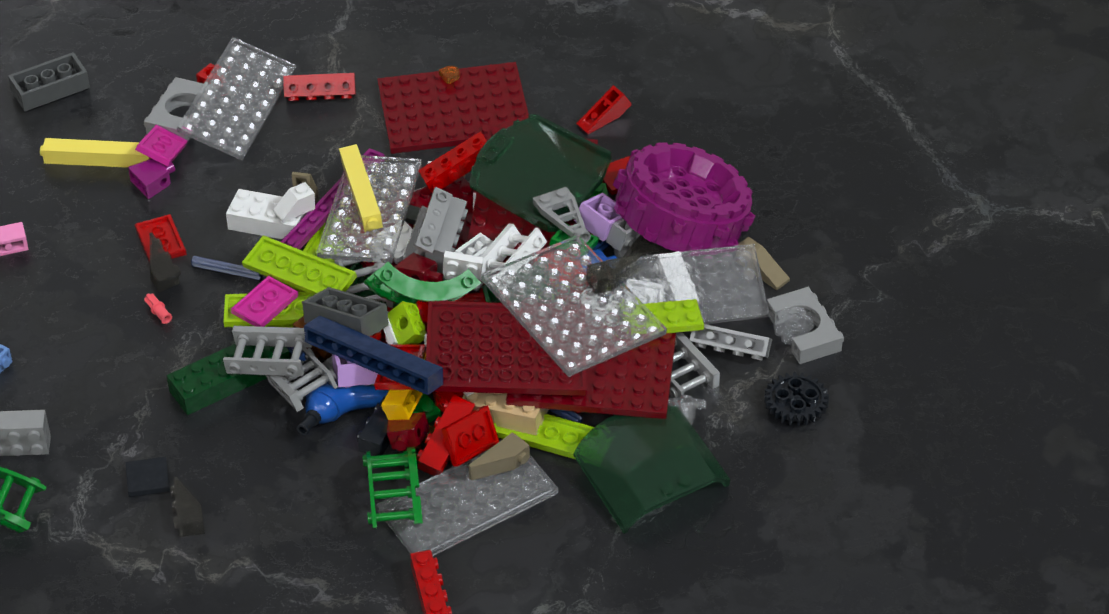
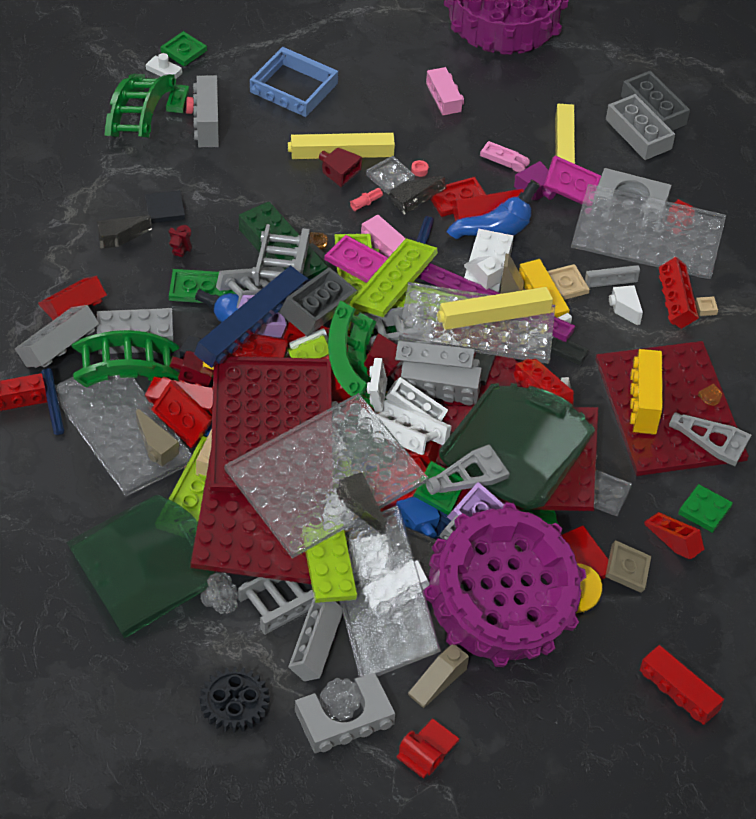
camera: 85 degrees right, 5 degrees up
(73, 325) = (363, 144): none -> light yellow brick
(83, 94) = (640, 127): none -> light grey brick
(105, 326) = (340, 165): none -> dark red torso
(106, 200) = (504, 156): none -> bright pink hinge
(113, 267) = (419, 168): none -> coral tile
(123, 288) = (389, 174): none -> clear plate
(185, 210) = (481, 204): none -> red brick
(211, 296) = (382, 235): none -> bright pink brick
(212, 195) = (507, 218): none -> blue animal
(213, 346) = (319, 240): none -> clear orange tile
(214, 453) = (180, 240): none -> dark red hips
(278, 435) = (187, 283): none -> green plate
(288, 546) = (81, 293): none -> red slope
(290, 162) = (569, 281): none -> tan tile
(291, 131) = (612, 276): none -> light grey tile
(324, 174) = (536, 276): none -> yellow brick
(328, 122) = (626, 303): none -> white slope
(333, 68) = (706, 306): none -> tan plate
(343, 488) = (144, 320): none -> light grey brick
(356, 545) = (57, 336): none -> light grey brick
(443, 552) = (52, 400): none -> dark blue axle
(454, 105) = (646, 391): none -> yellow brick
(509, 62) = (732, 448): none -> light grey plate
(571, 94) = (705, 508): none -> green plate
(638, 139) = (628, 566): none -> dark tan plate
(761, 117) = (681, 685): none -> red brick
(835, 277) = (427, 748): none -> red piece

